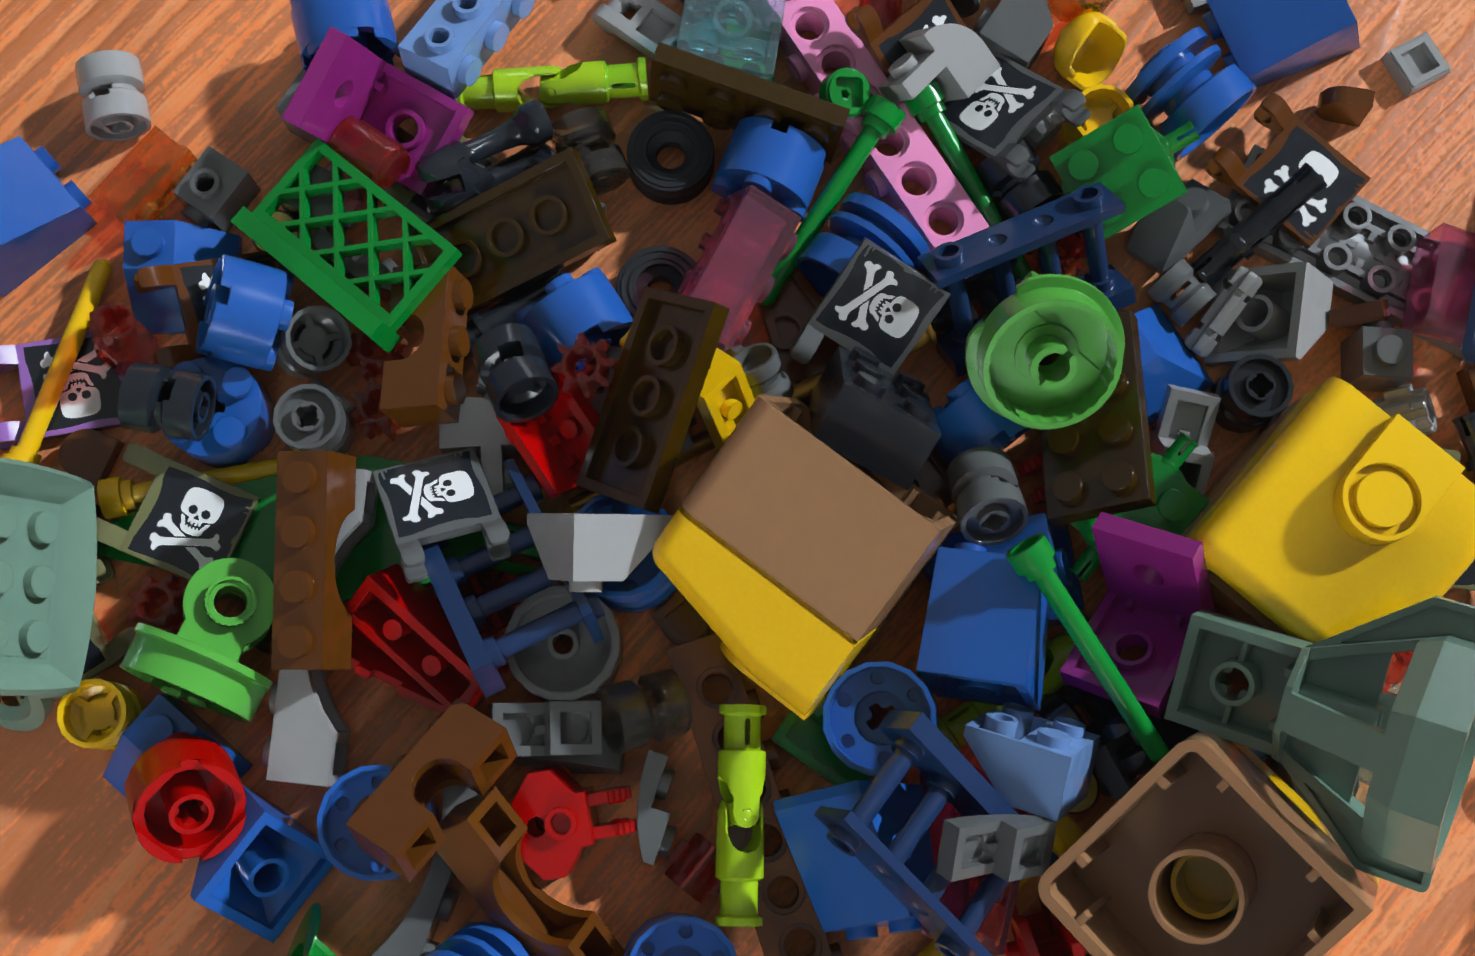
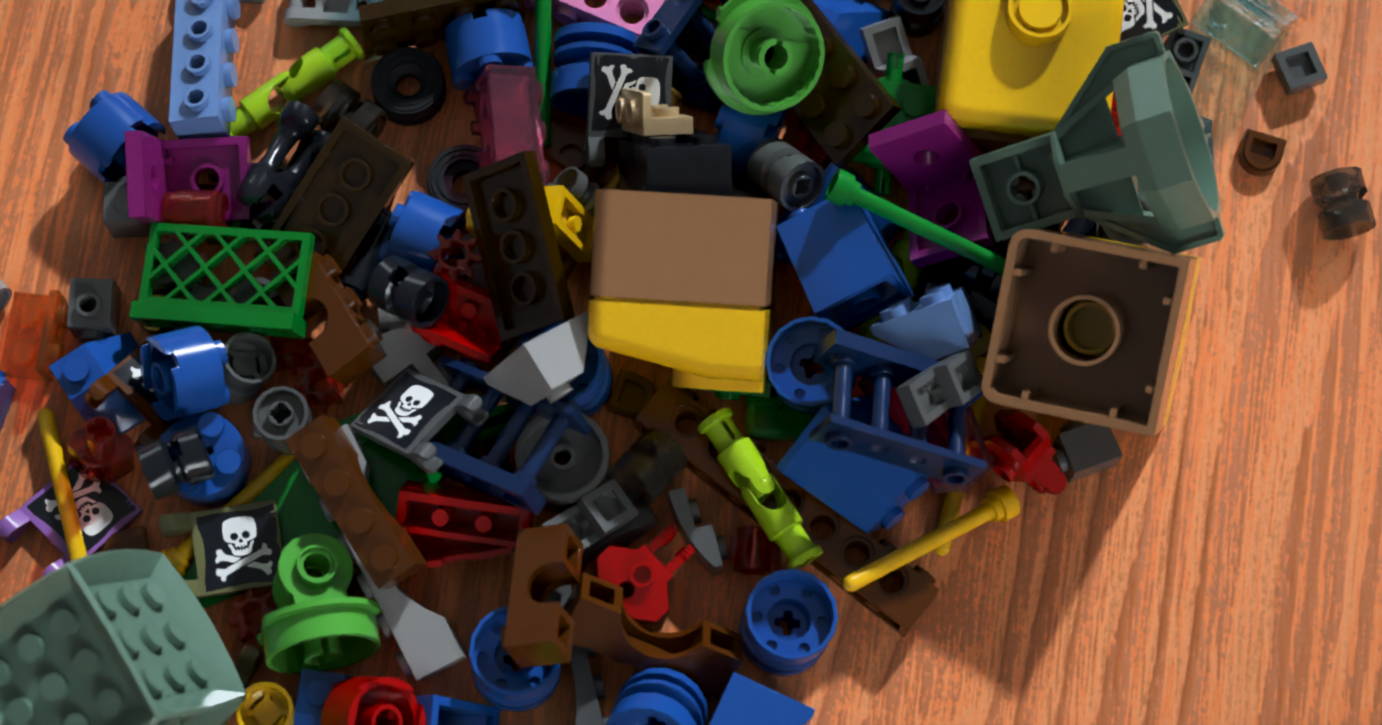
camera: 30 degrees left, 5 degrees down
(882, 349) = (649, 119): none -> tan bracket

